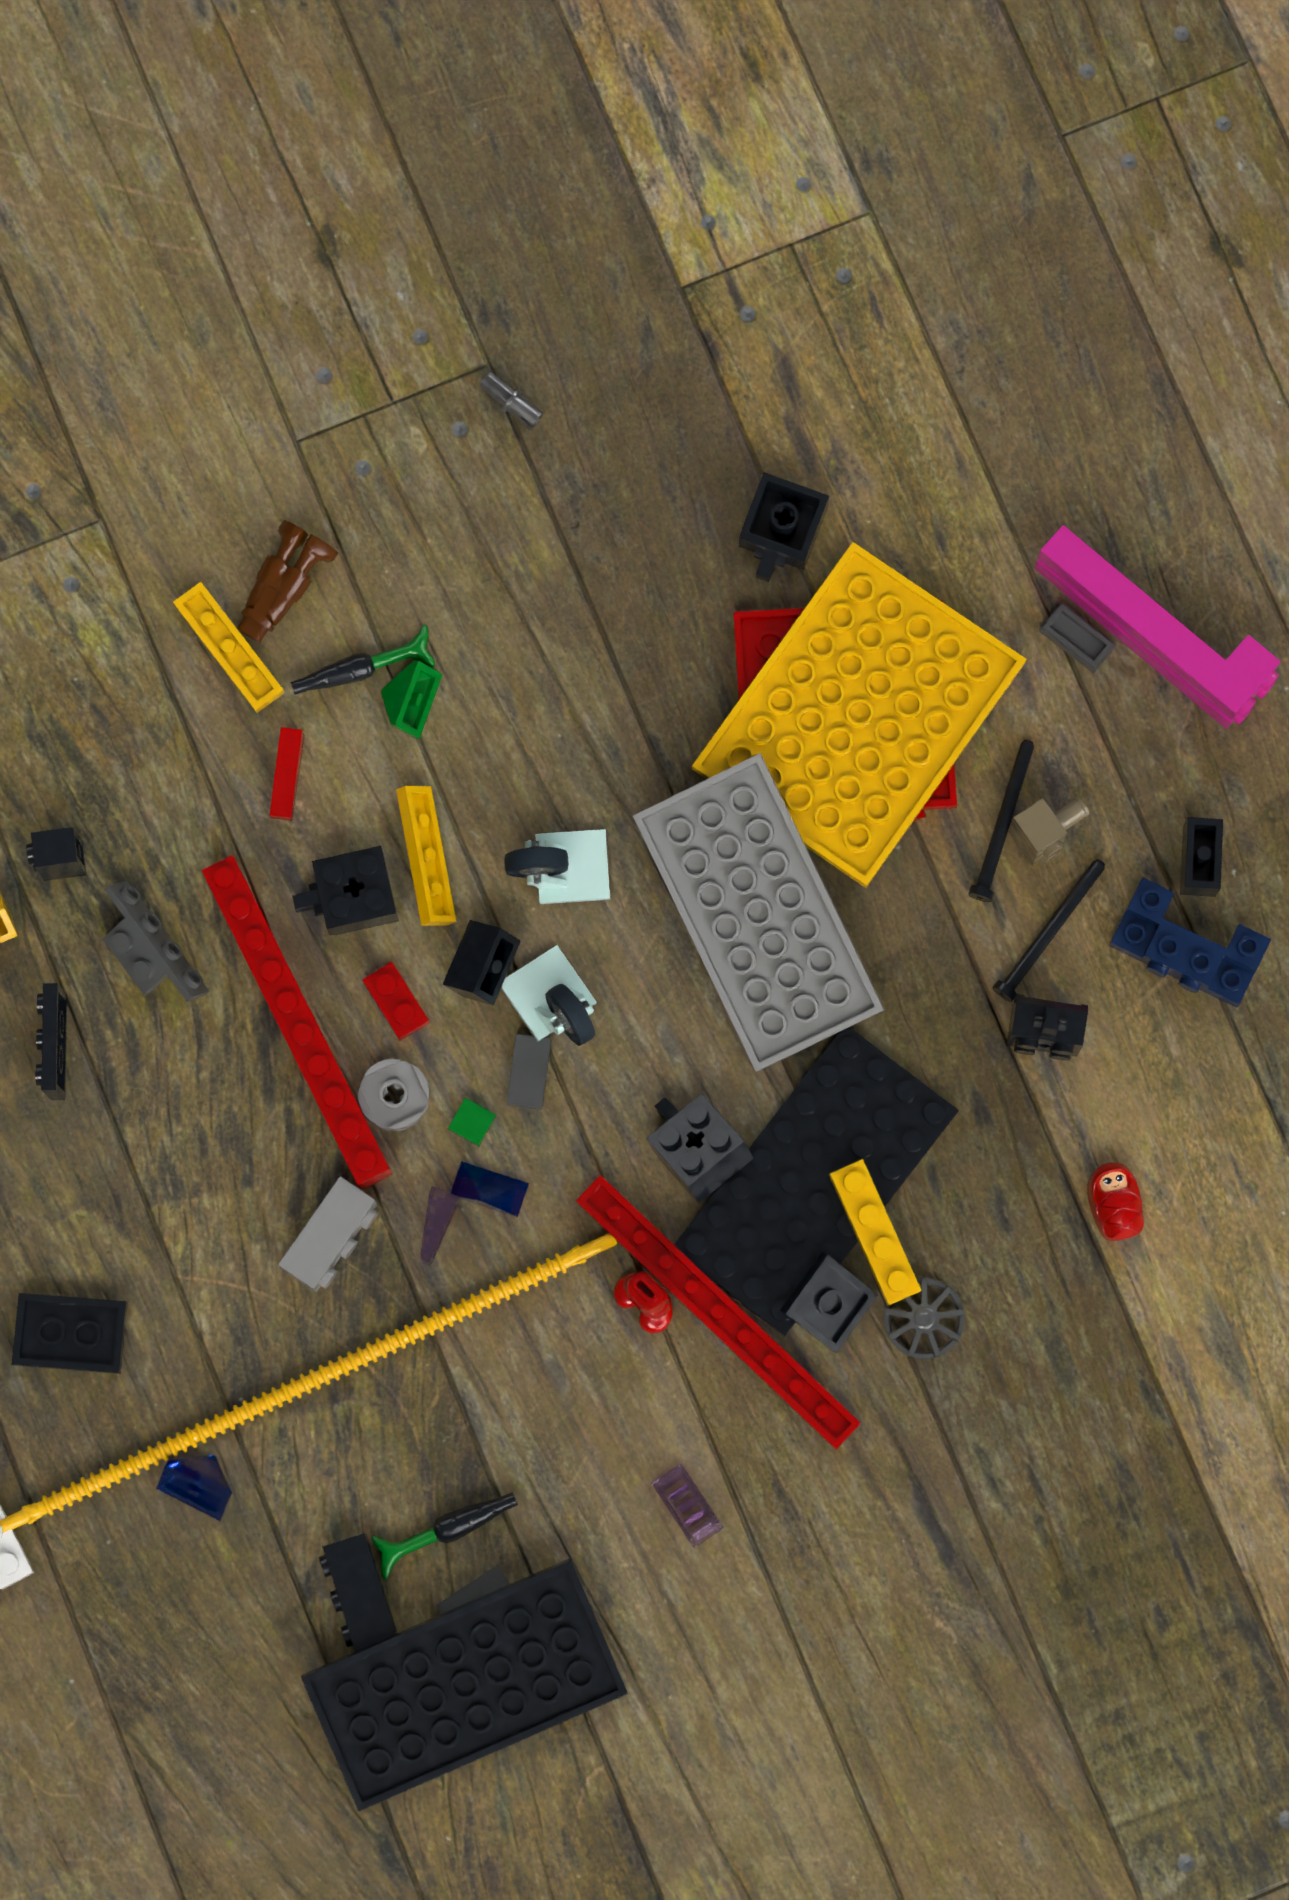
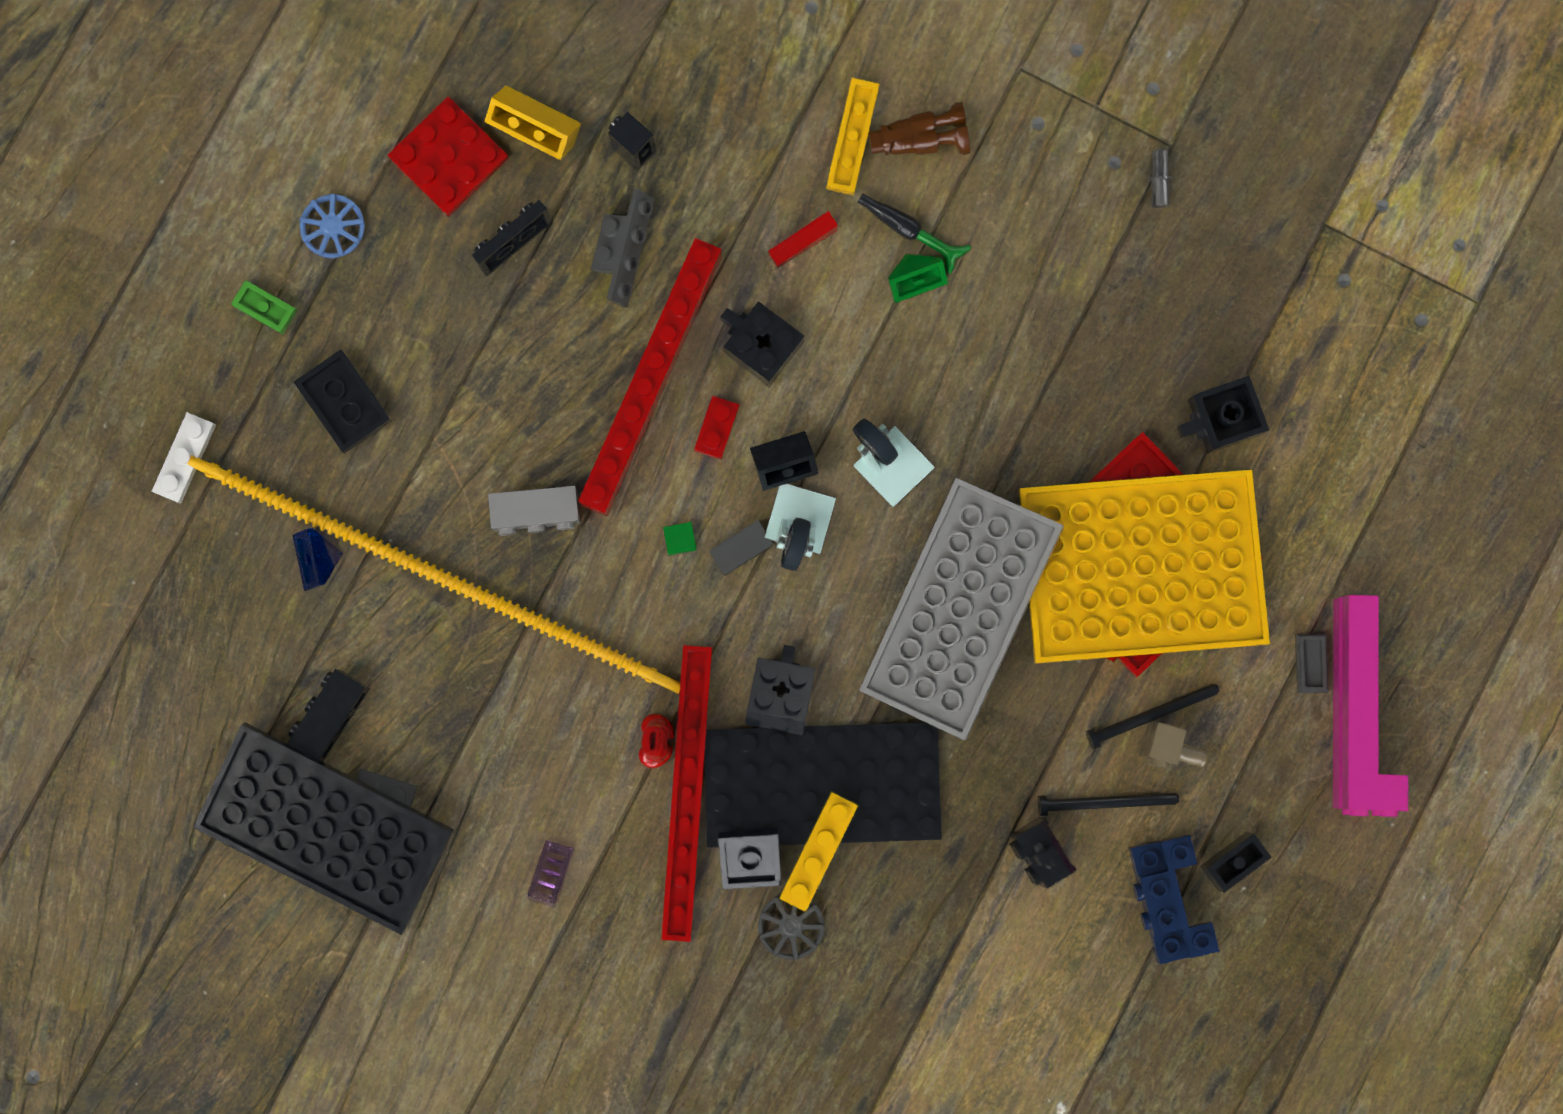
camera: 45 degrees right, 5 degrees up
(402, 1076) = (650, 460): light grey plate -> none
(426, 855) = (823, 369): yellow plate -> none
(438, 1218) = (601, 568): clear purple slope -> none
(445, 1530) = (411, 735): black piece -> none
(489, 1189) = (647, 585): clear blue slope -> none
(1115, 1202) = (966, 988): red piece -> none

